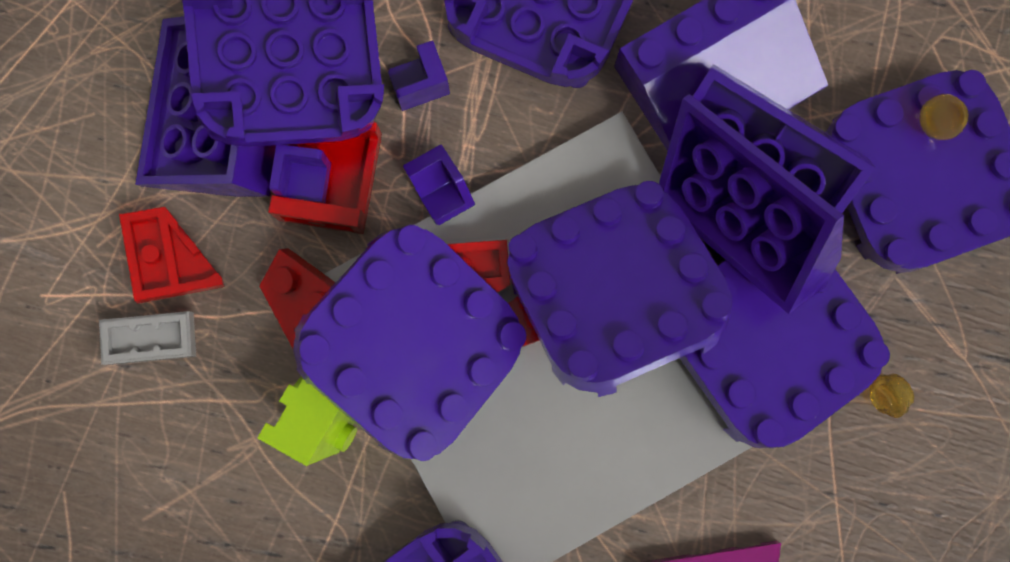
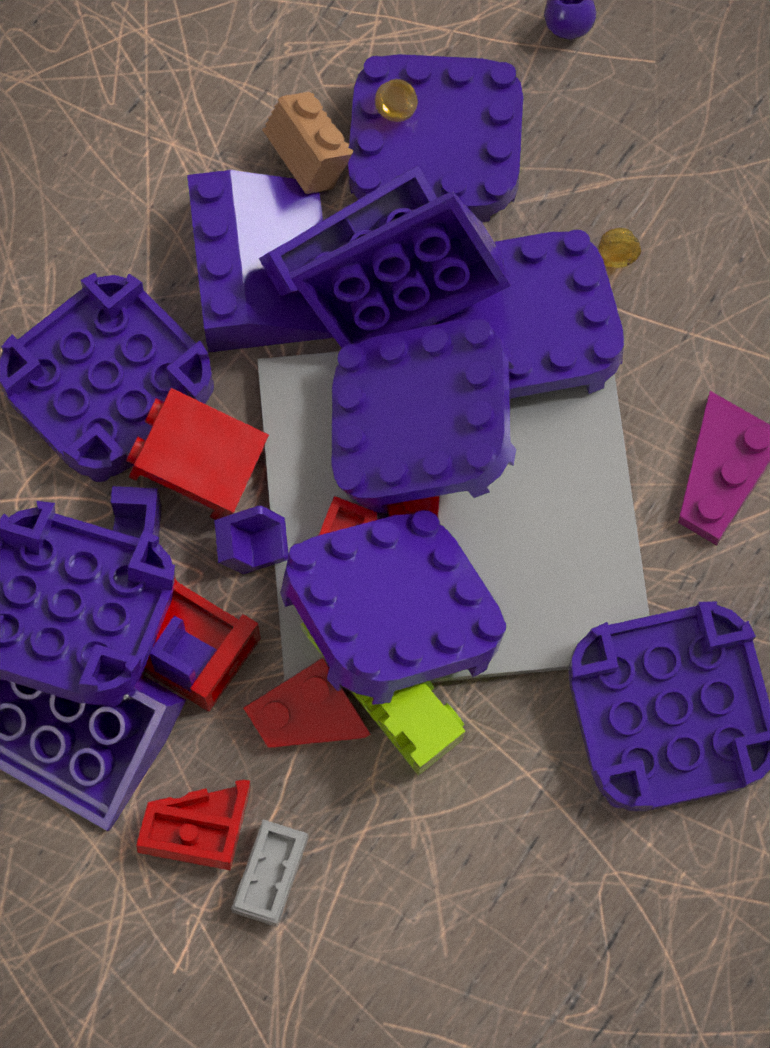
camera: 65 degrees left, 15 degrees down
(497, 98) = (197, 452): none -> red panel
(861, 55) = (307, 142): none -> medium nougat brick

